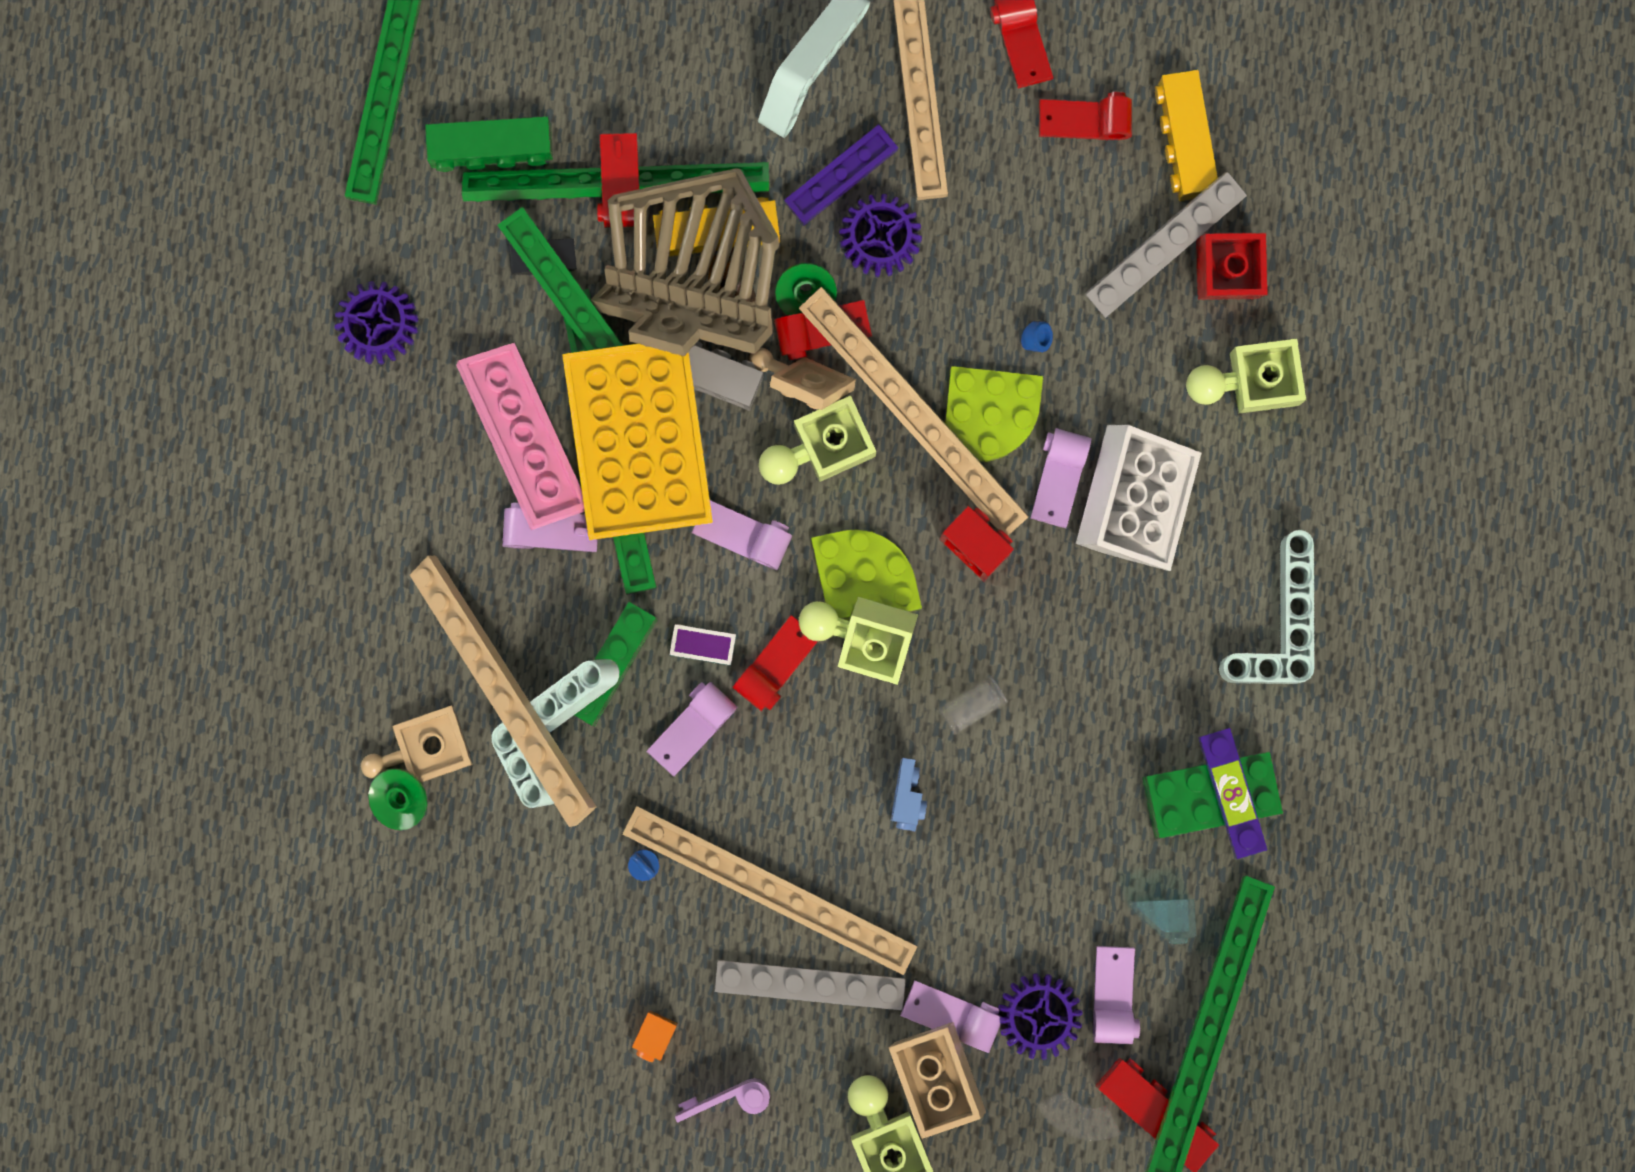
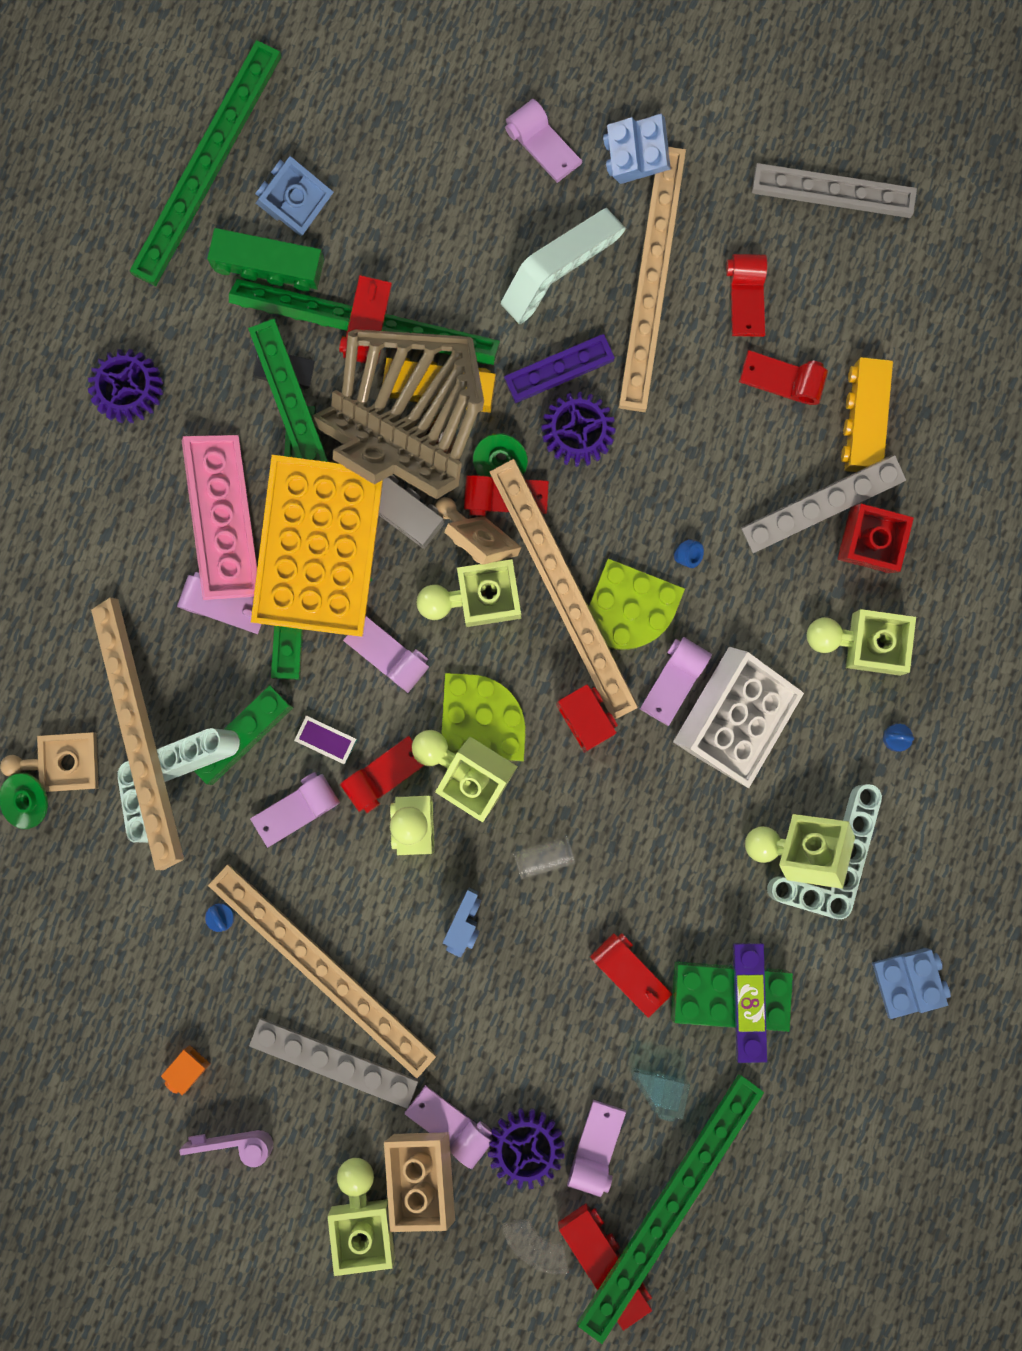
camera: 15 degrees right, 0 degrees up
(499, 65) = (293, 195): none -> medium blue plate
(824, 707) = (412, 825): none -> yellowish green brick
(1099, 802) = (630, 974): none -> red door
(1255, 619) = (812, 853): none -> yellowish green brick
(1314, 472) = (898, 737): none -> blue tile
(1399, 729) = (911, 983): none -> medium blue plate

